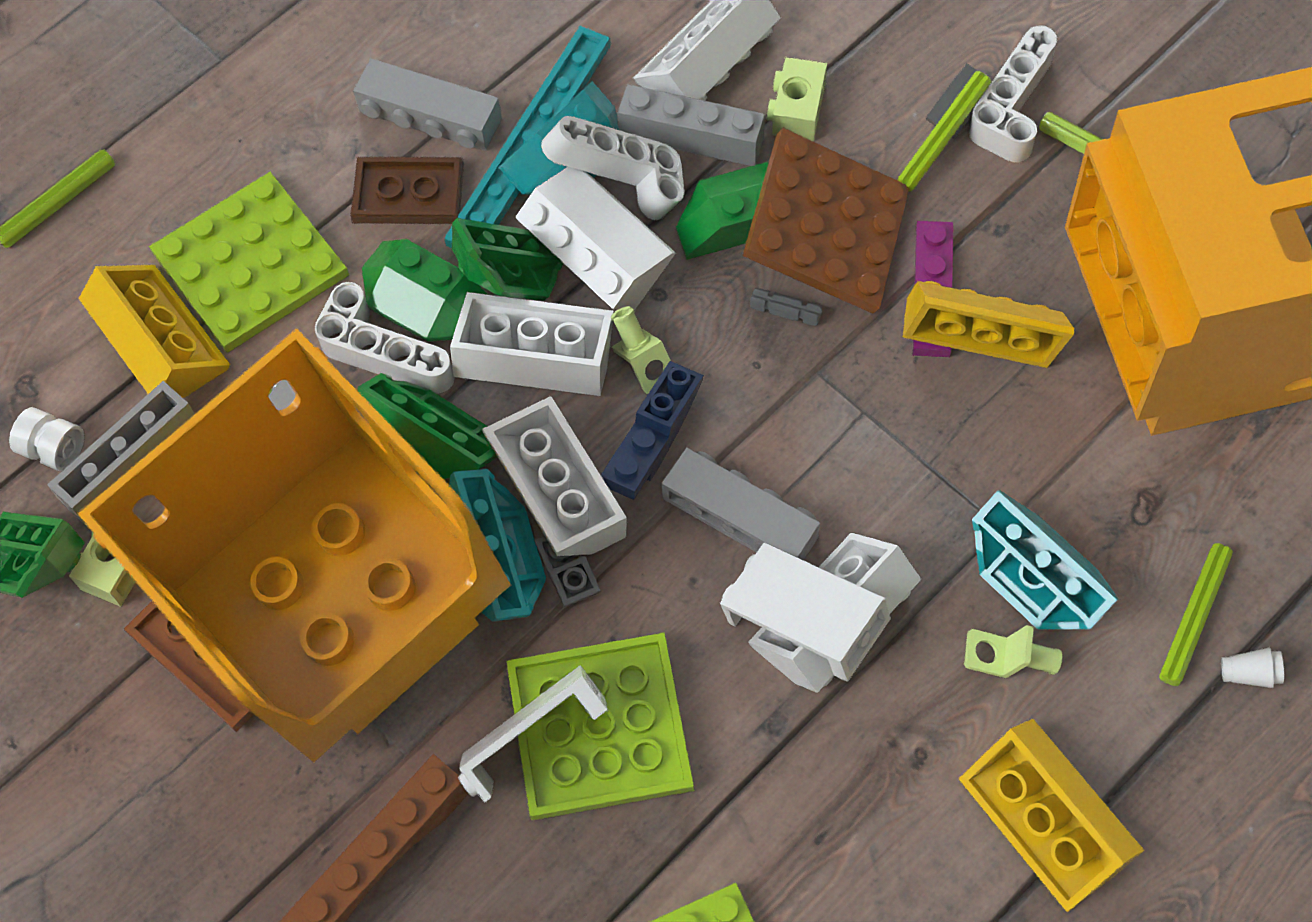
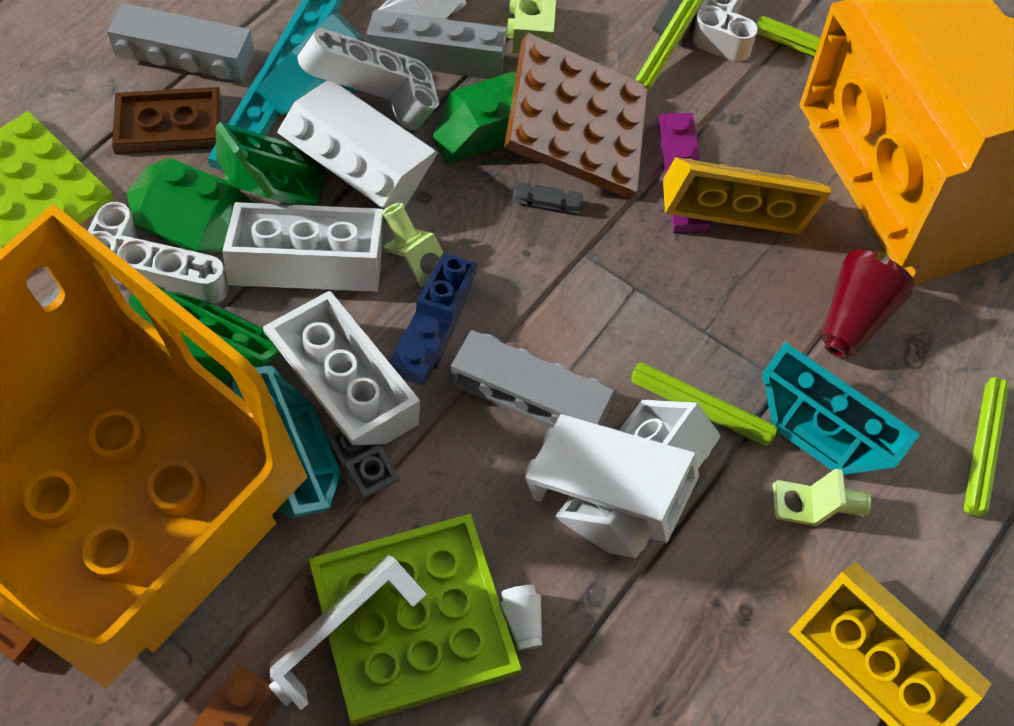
camera: 15 degrees left, 5 degrees down
(702, 736) = (523, 615): none -> white cone
(912, 543) = (715, 408): none -> lime axle
(1093, 453) = (864, 301): none -> dark red cone

